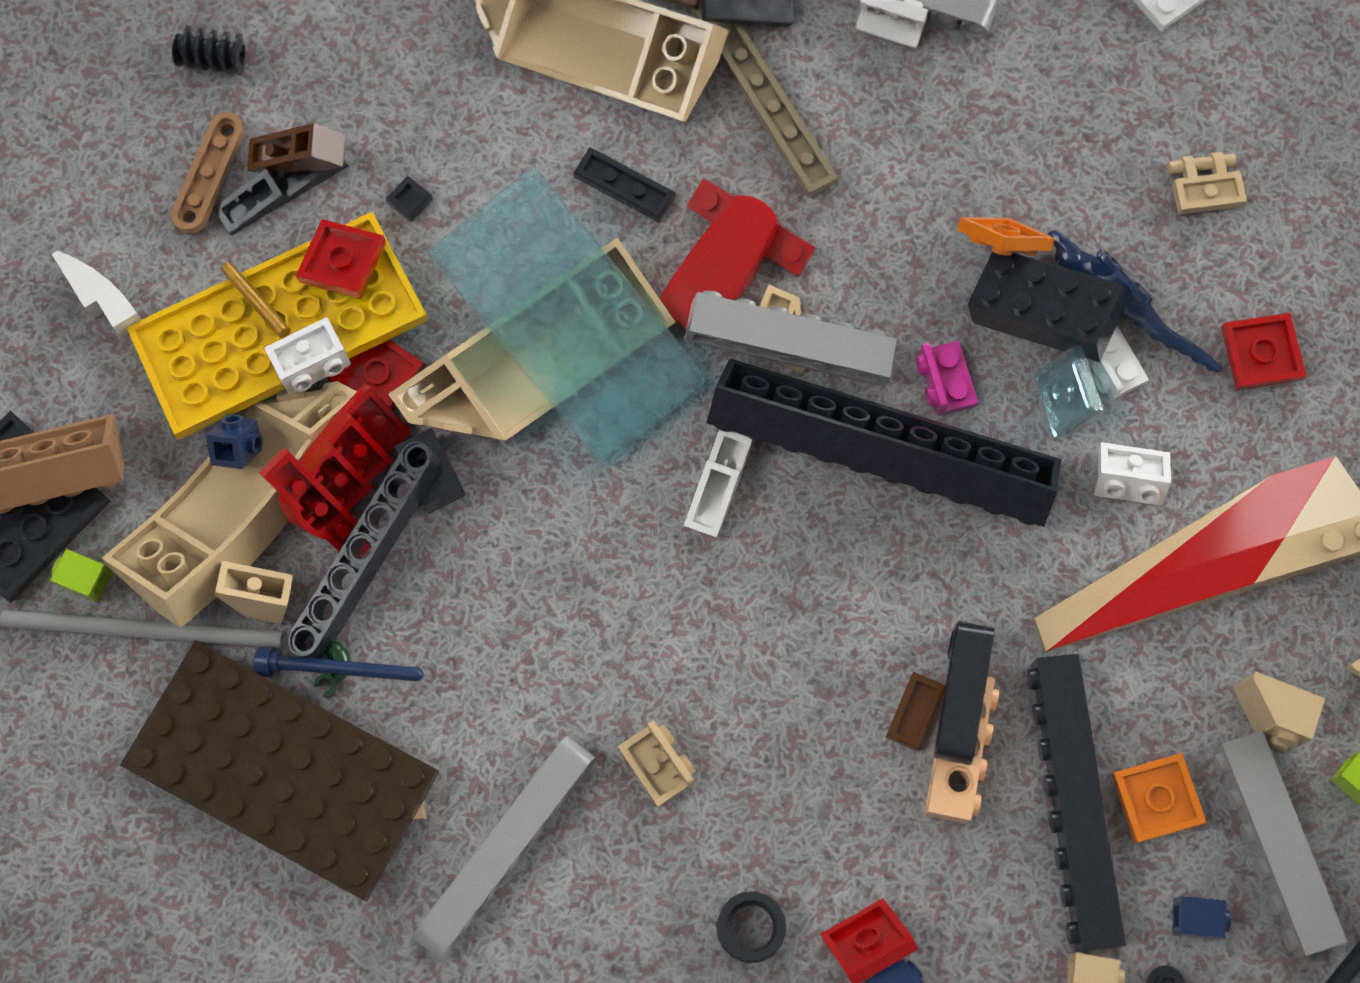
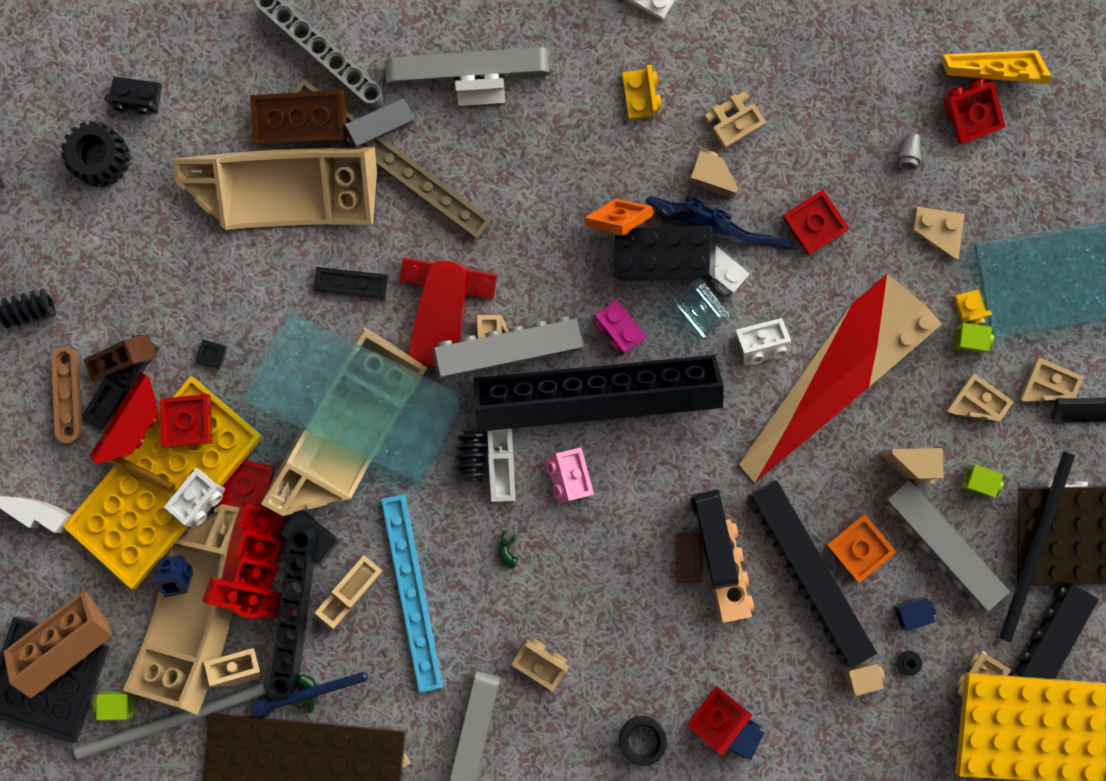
camera: 25 degrees left, 10 degrees up
(271, 230) = (129, 423): none -> red wedge
(443, 563) = (347, 593): none -> tan slope
(527, 602) = (412, 593): none -> medium azure tile
(671, 603) = (504, 554): none -> dark green arm
(681, 455) = (471, 456): none -> black piece
(801, 535) = (569, 475): none -> bright pink bracket
(1095, 105) = (641, 94): none -> yellow bracket
(1150, 238) = (713, 174): none -> tan slope

